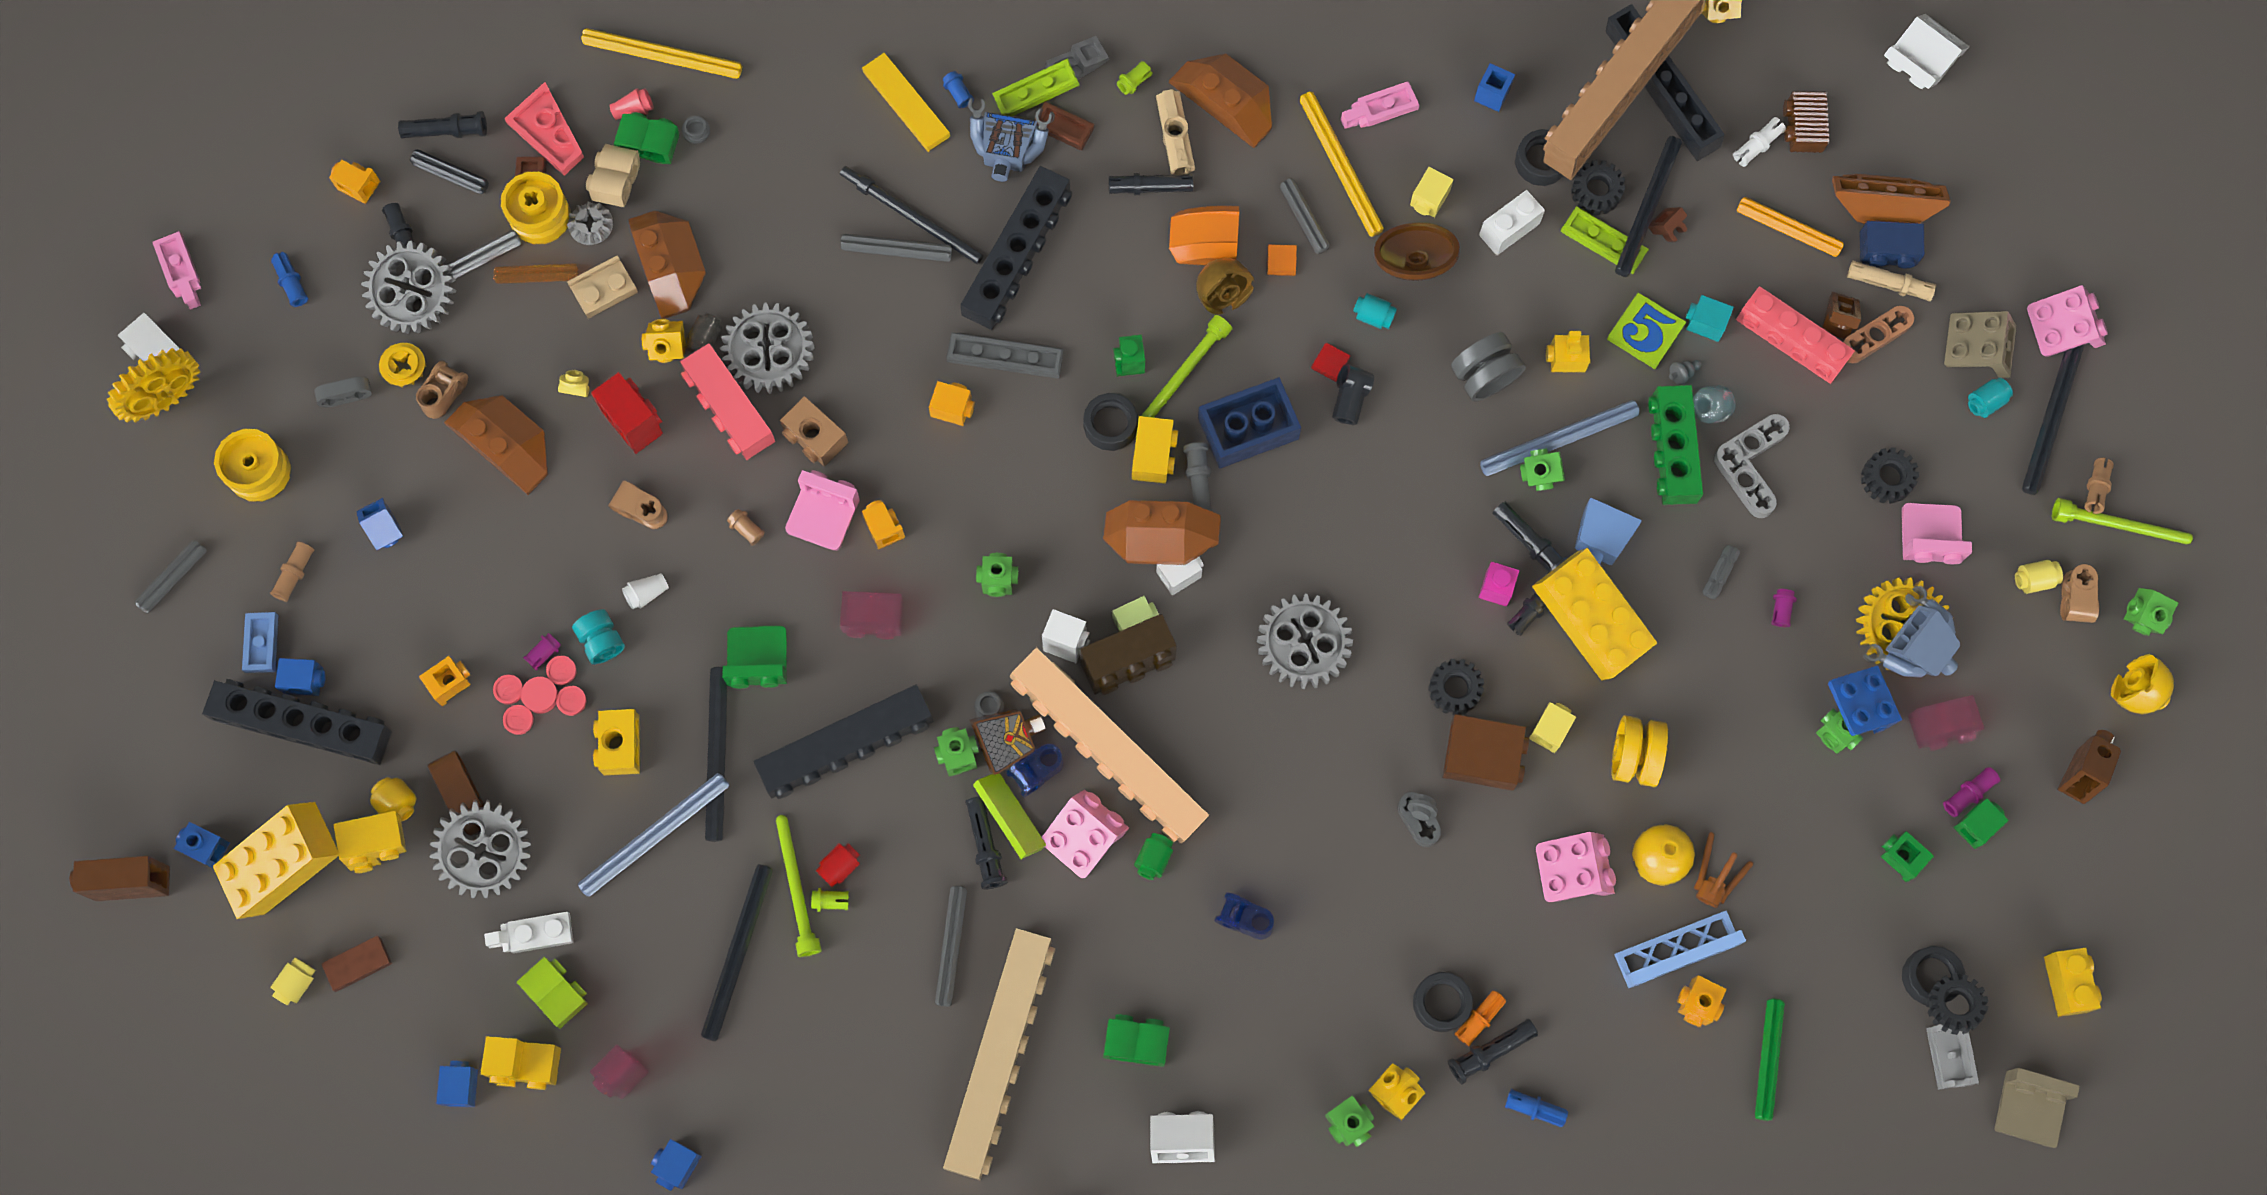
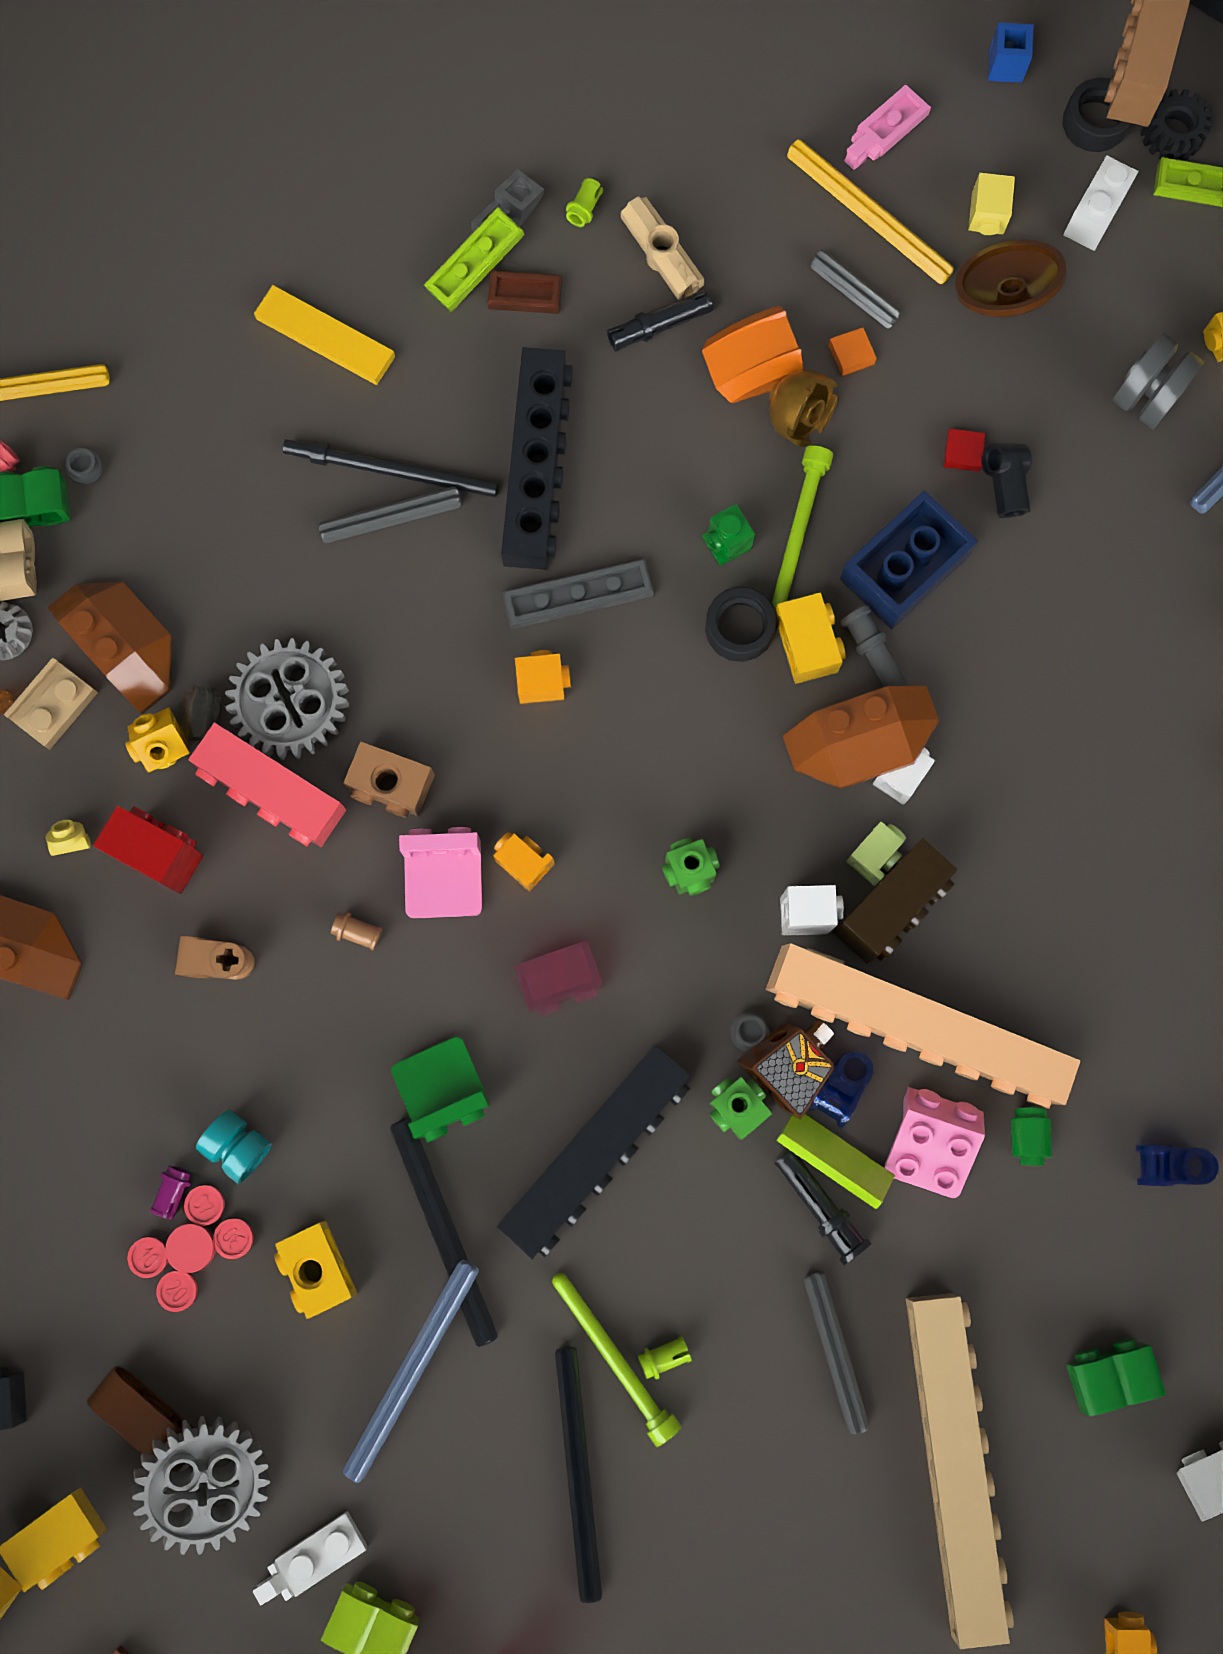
camera: 20 degrees left, 5 degrees up
(393, 796) = (61, 1465): yellow head -> none
(436, 679) = (51, 1286): light orange brick -> none
(644, 590) = (265, 1062): white cone -> none
(838, 864) = (655, 1309): red brick -> none
(954, 83) = (380, 295): blue pin -> none
(1007, 140) = (467, 333): torso -> none
(1228, 95) = (702, 181): dark orange wedge -> none
(1328, 630) = (1107, 771): light grey gear -> none
(1374, 311) = (990, 369): teal brick -> none

